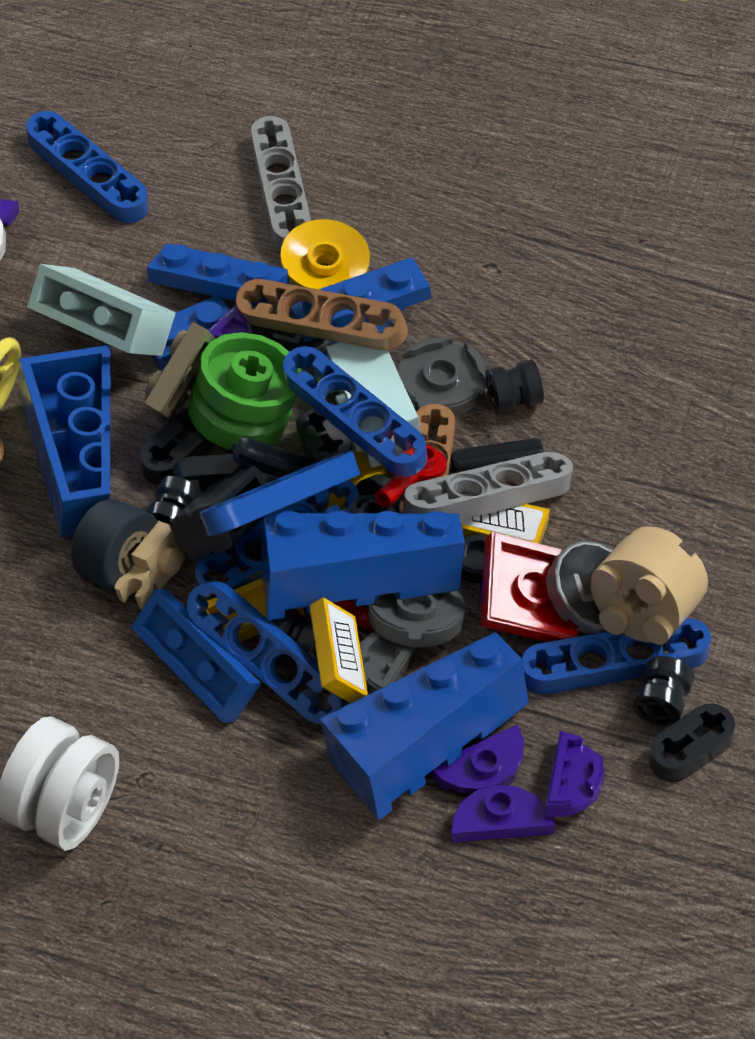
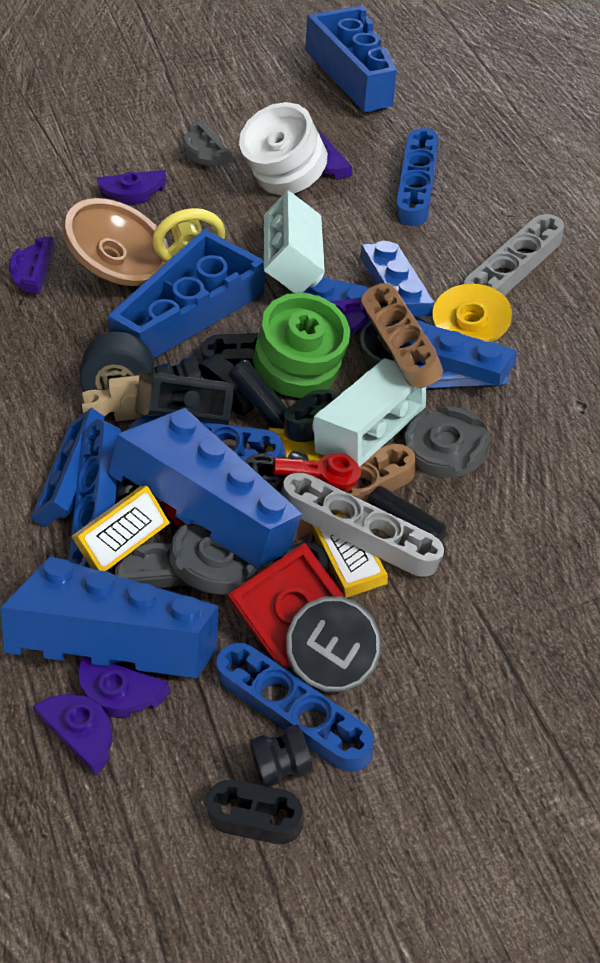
camera: 55 degrees right, 5 degrees down
(169, 387) = (251, 304): dark tan plate -> none
(279, 493) = (206, 402): blue beam -> none
(358, 407) = (318, 395): blue beam -> none
(514, 386) = (476, 481): black wheel -> none
(575, 777) = (146, 751): dark purple plate -> none
(648, 586) = (346, 670): tan brick -> none

